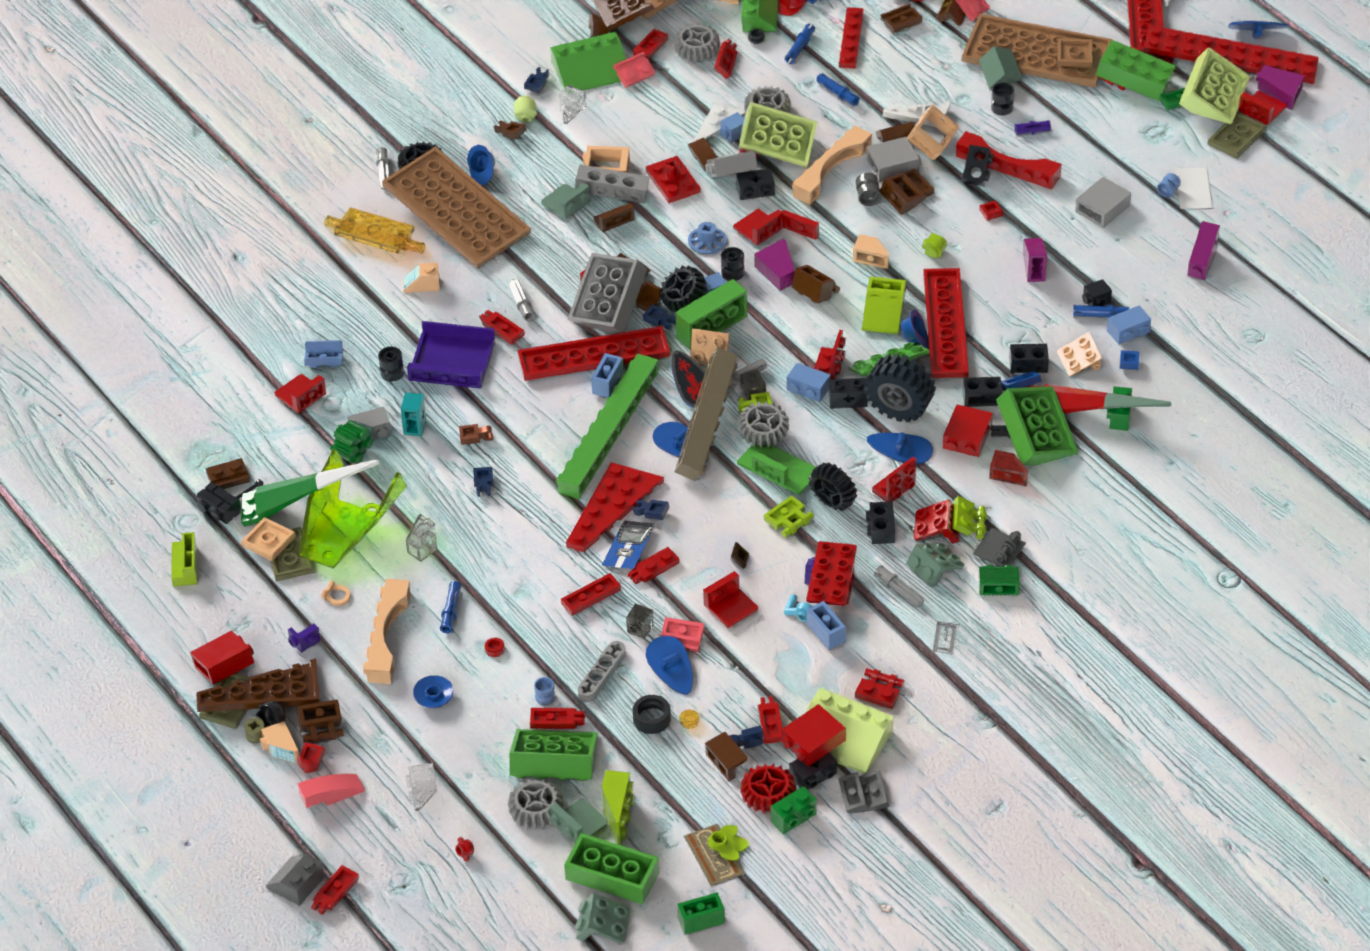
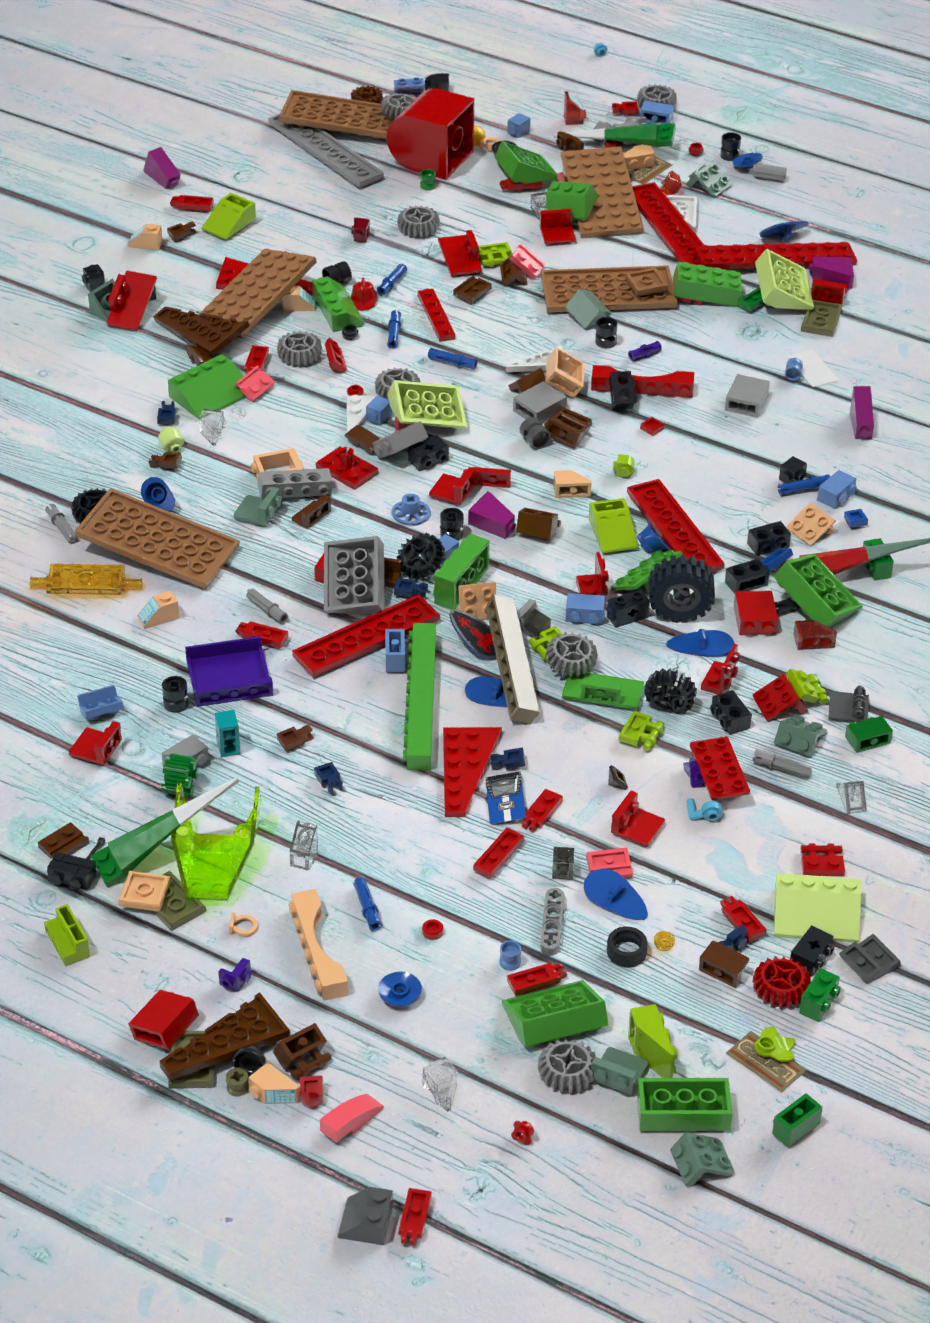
camera: 25 degrees left, 5 degrees down
(725, 100) = (355, 390): none -> red plate
(813, 735) = (801, 917): red brick -> none
(826, 625) = (742, 816): medium blue brick -> none
(851, 145) = (495, 401): light nougat arch -> none
(1035, 259) = (721, 455): magenta slope -> none

